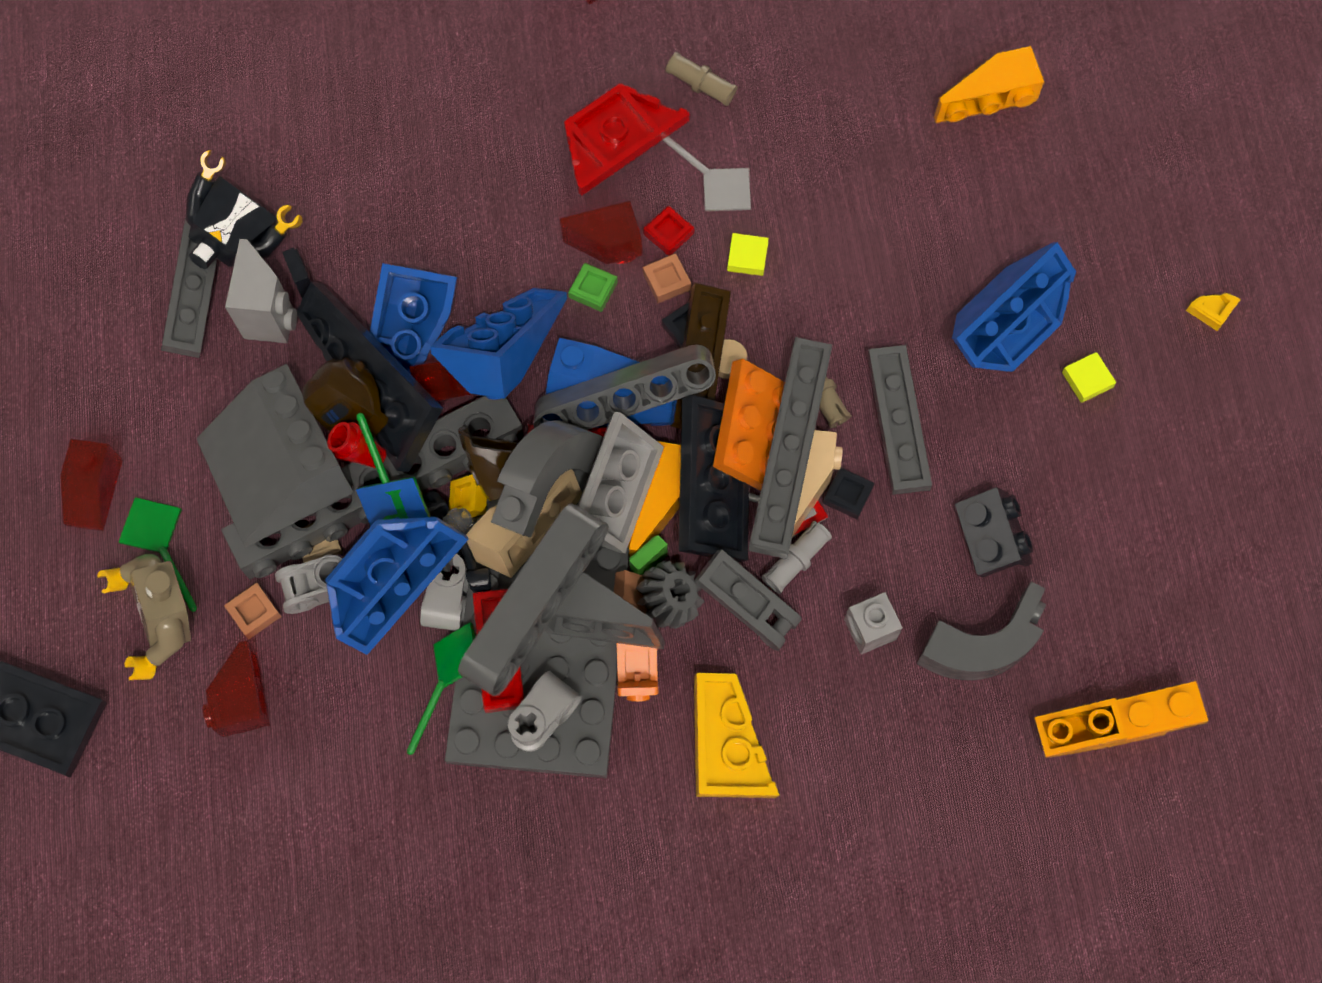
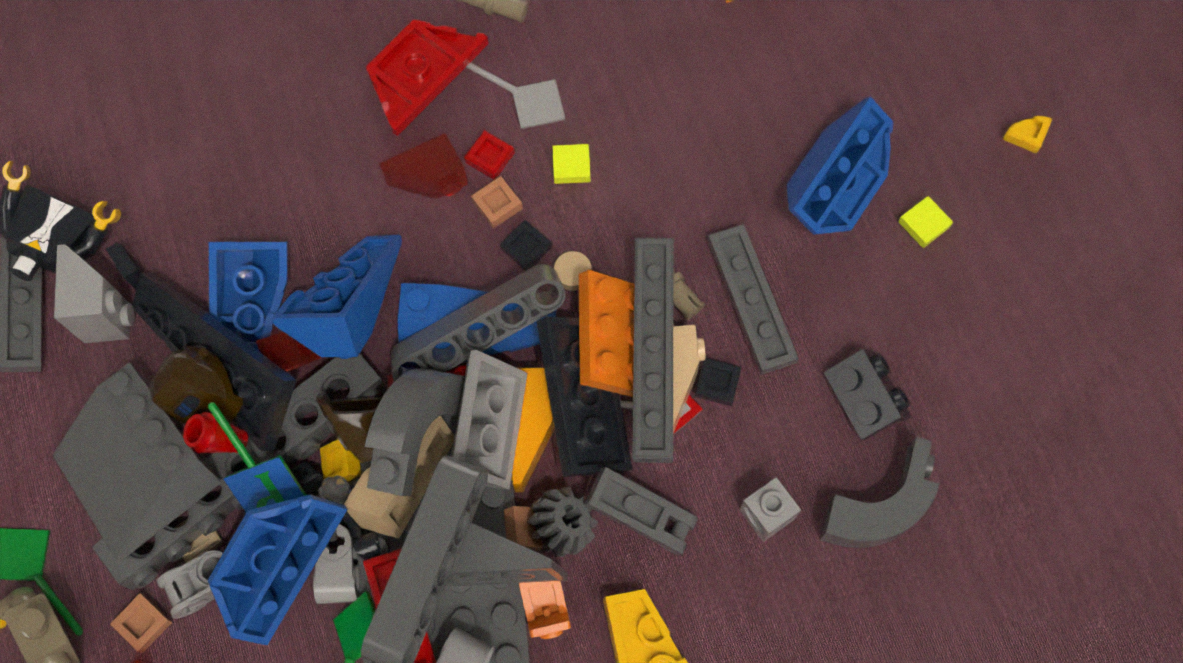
camera: 10 degrees left, 0 degrees up
(593, 287) = (425, 224): bright green tile -> none
(649, 555) = (533, 486): bright green tile -> none
(707, 328) = (545, 246): dark brown plate -> none
(798, 558) = (683, 457): light grey pin -> none
(1121, 720) = (1033, 558): light orange slope -> none

